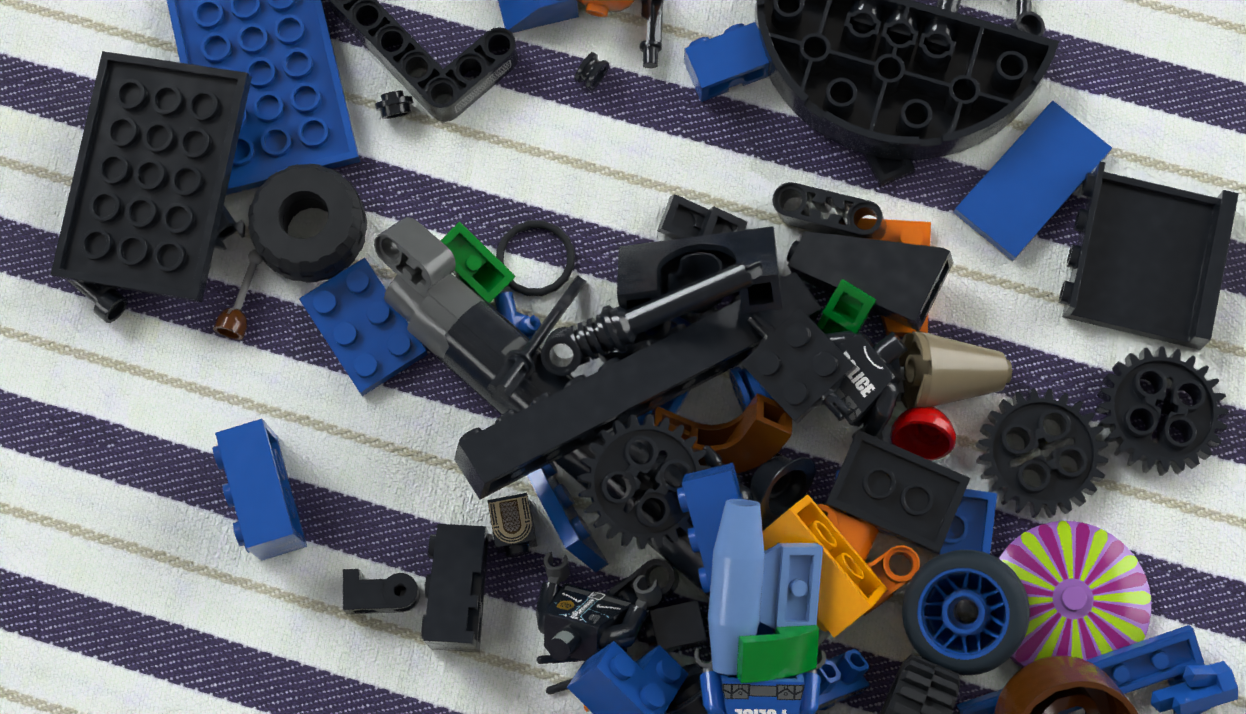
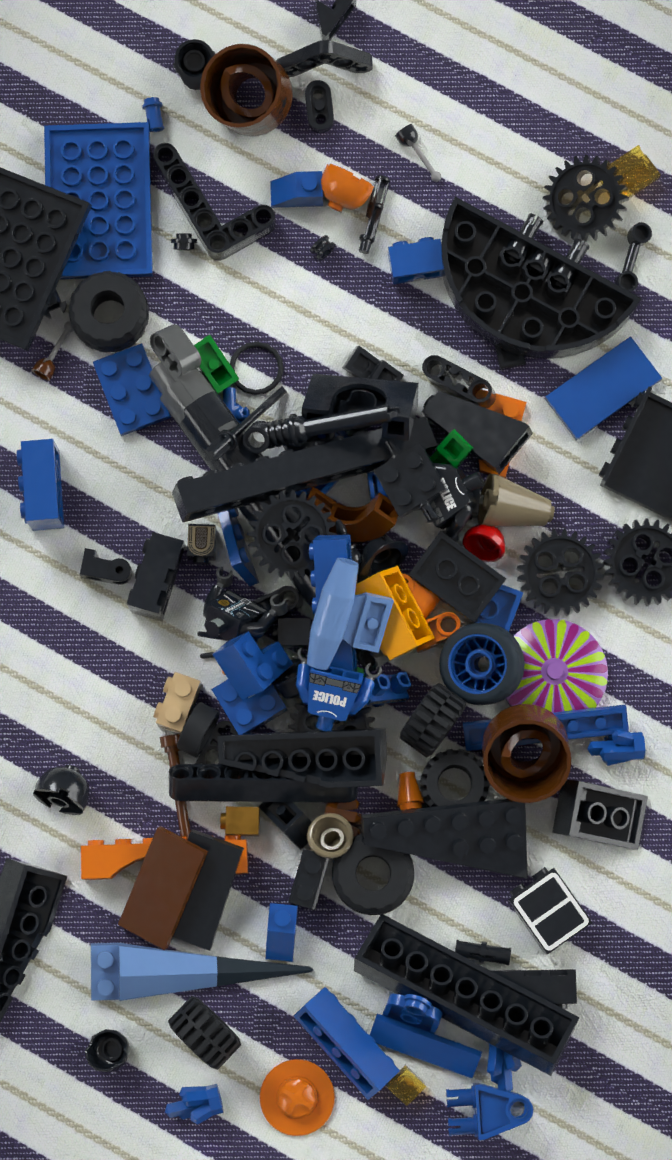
camera: 10 degrees right, 5 degrees up
(777, 655) = (349, 663): green slope -> none

